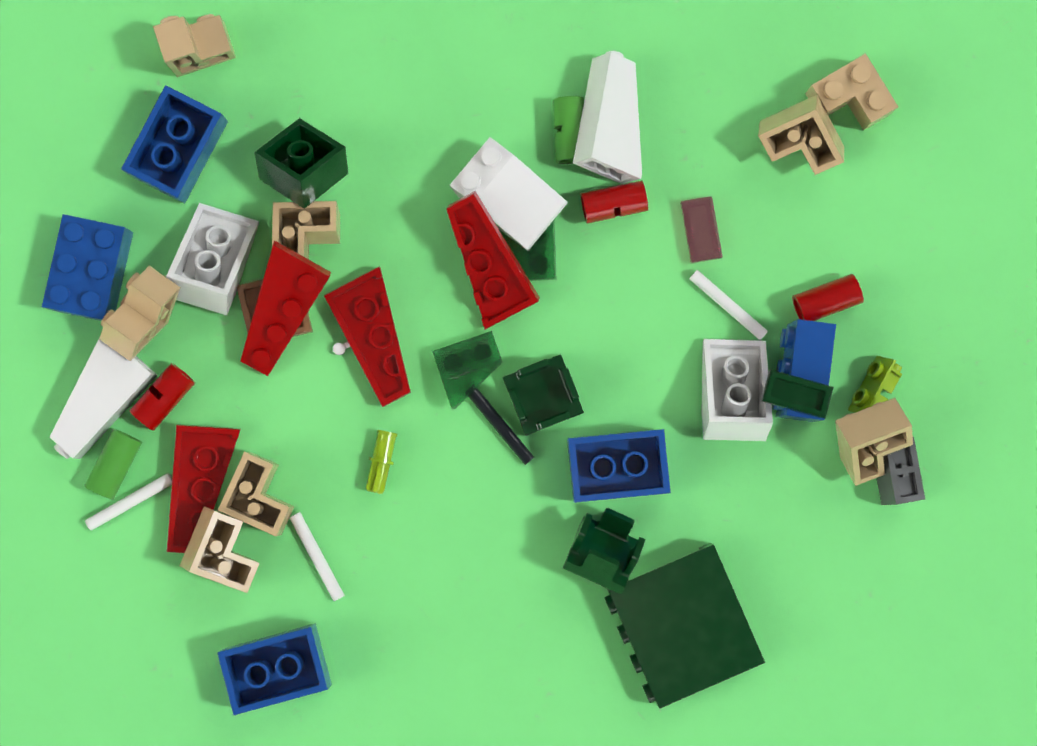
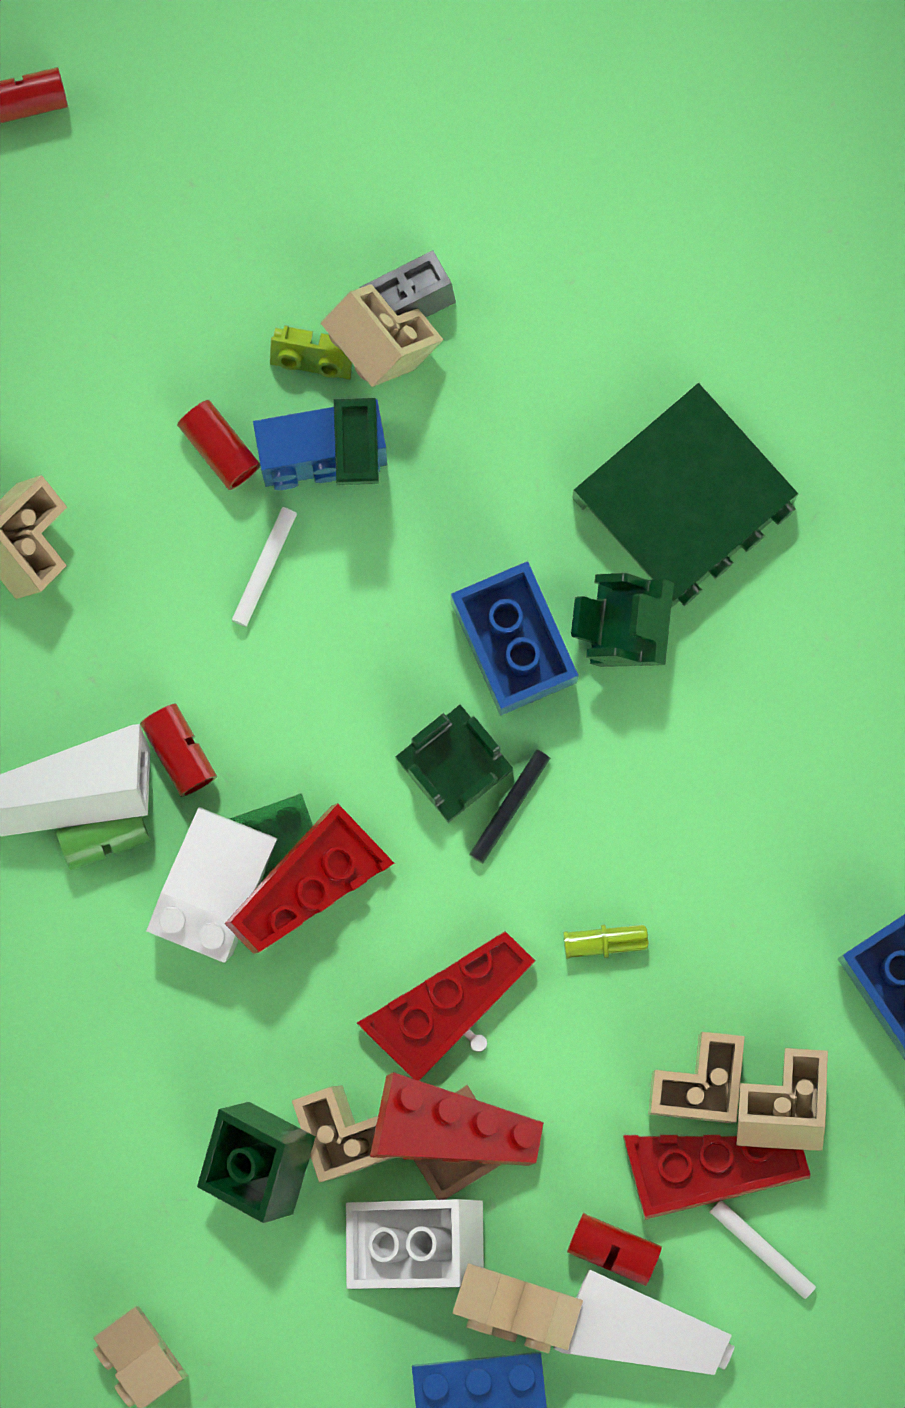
camera: 105 degrees left, 5 degrees down
(113, 464) = (721, 1284): bright green pin -> none
(175, 144) = (281, 1340): blue brick -> none
(316, 556) = (753, 984): white bar -> none
(467, 365) = (448, 870): clear green wing -> none
(701, 229) = (179, 630): clear pink tile -> none
(733, 389) = (371, 524): white slope -> none

